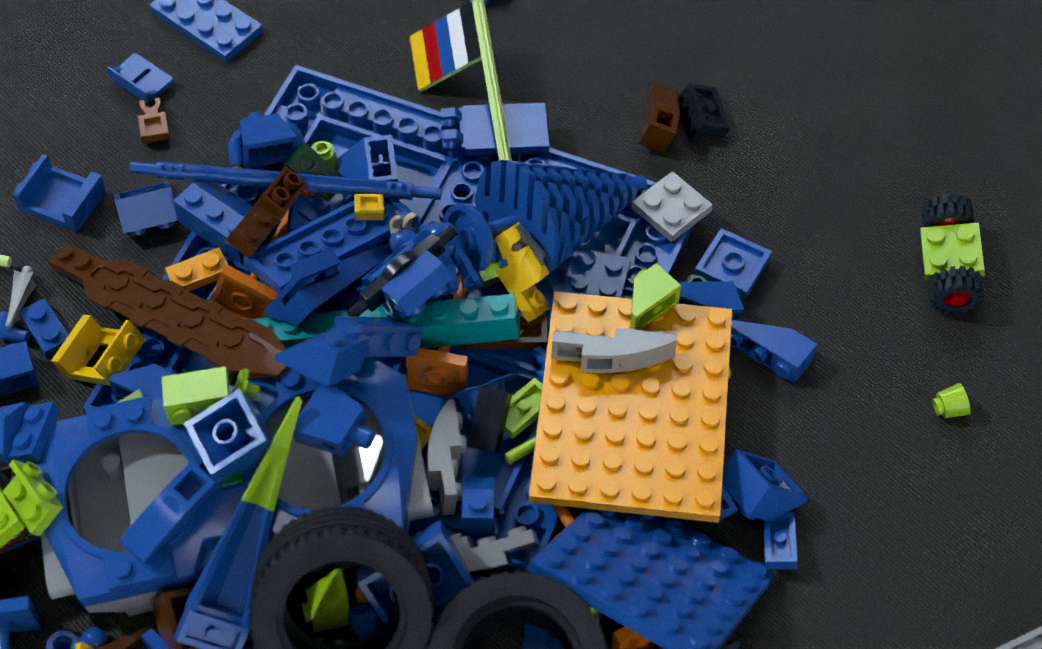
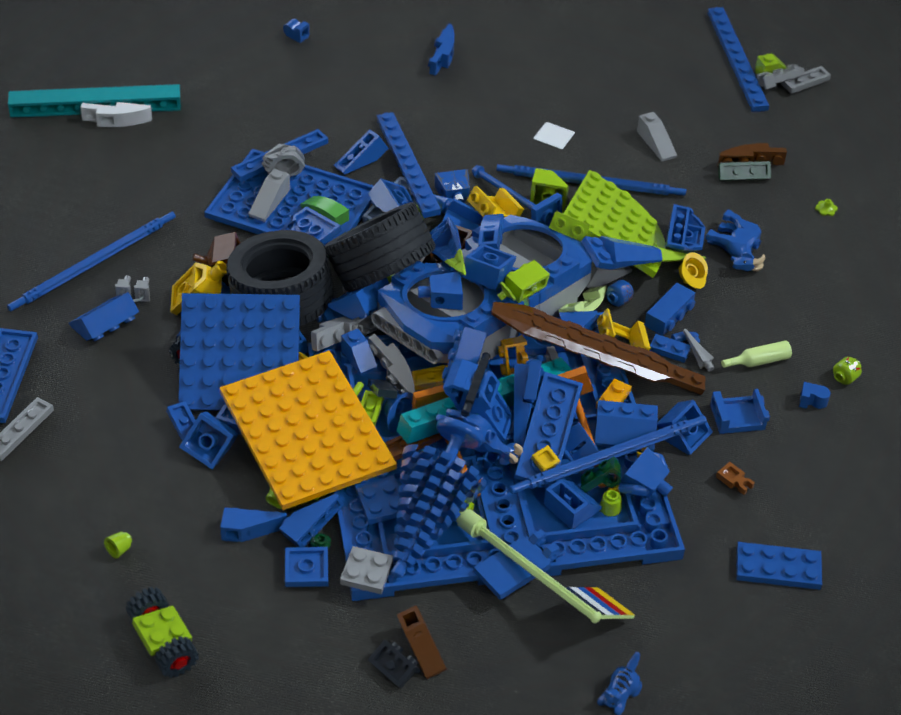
camera: 145 degrees right, 10 degrees down
(132, 70) = (782, 500): piece -> none
(267, 212) = (595, 413): reddish brown slope -> none
(328, 355) = (474, 305): blue slope -> none
(523, 269) = (424, 440): yellow plate -> none
(626, 352) = (327, 431): light grey slope -> none
(652, 295) = (332, 472): lime slope -> none

